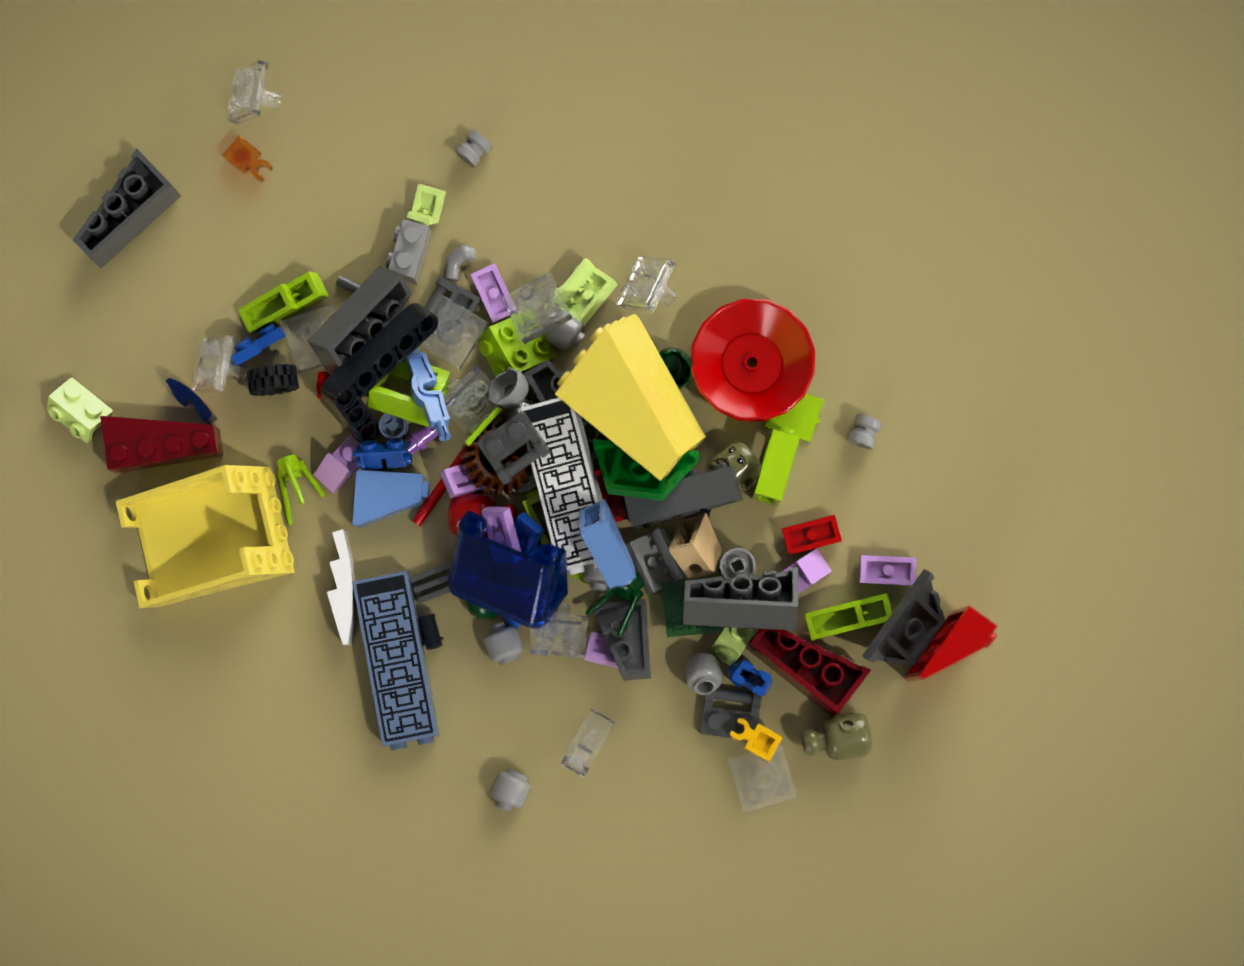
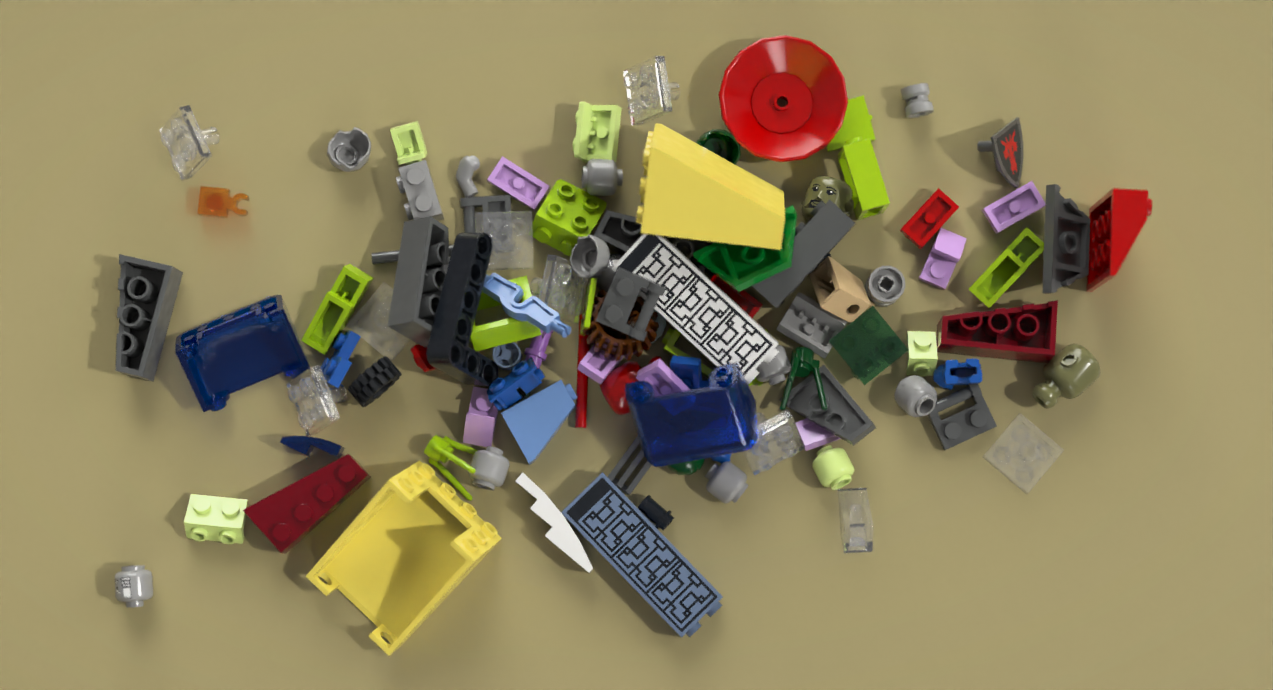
camera: 40 degrees left, 0 degrees up
(182, 287) = (240, 351): none -> clear blue windscreen
(319, 509) = (490, 468): none -> light grey head
(375, 180) = (349, 150): none -> light grey hair
(473, 149) = (417, 68): light grey wheel -> none
(510, 790) = (815, 604): light grey head -> none
(537, 307) = (567, 171): clear plate -> none
(598, 688) = (833, 467): none -> yellowish green head
(606, 544) = (768, 334): medium blue slope -> none
(744, 601) = (914, 310): dark grey wedge -> none
(760, 741) = (1003, 421): yellow plate -> none
(912, 521) = (1007, 151): none -> shield

